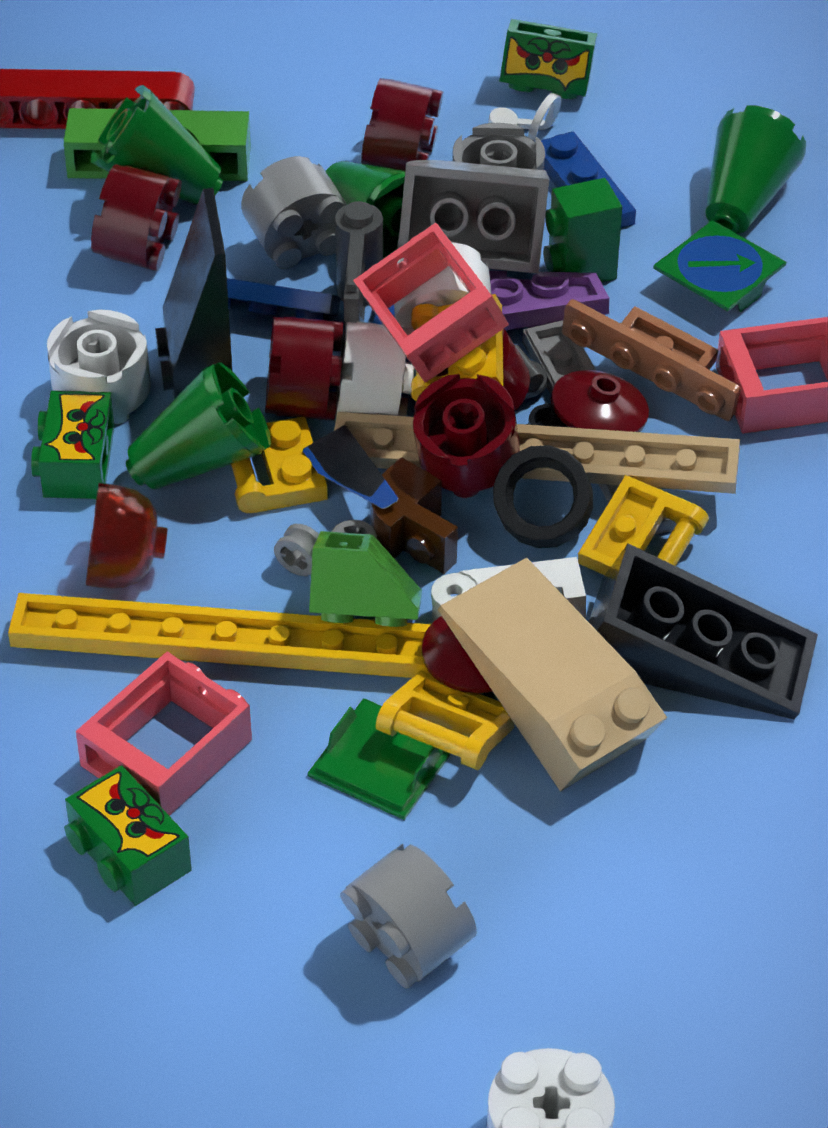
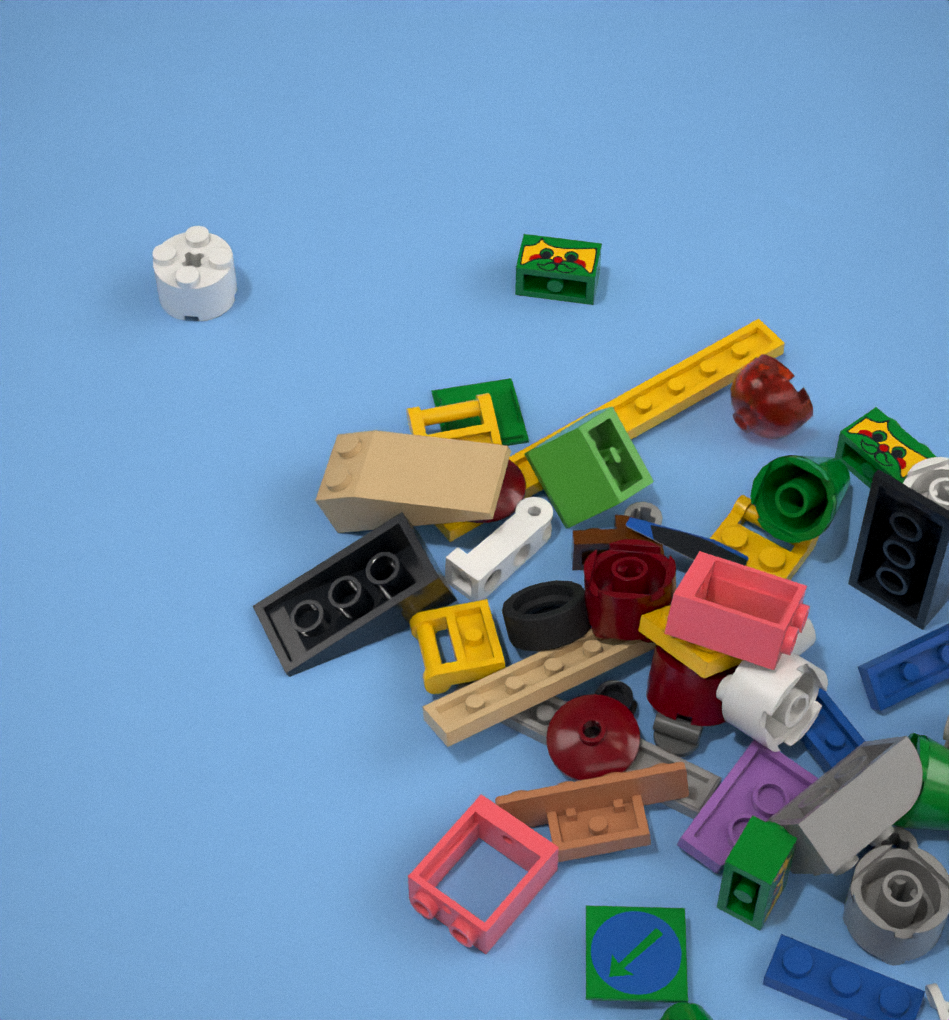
camera: 140 degrees right, 5 degrees up
(105, 735) = (620, 298): coral window -> none
(296, 549) = (667, 488): light grey bush -> none
(303, 368) = (828, 591): dark red brick -> none
(357, 249) = (885, 704): dark grey piece -> none
(407, 914) = (359, 308): light grey brick -> none

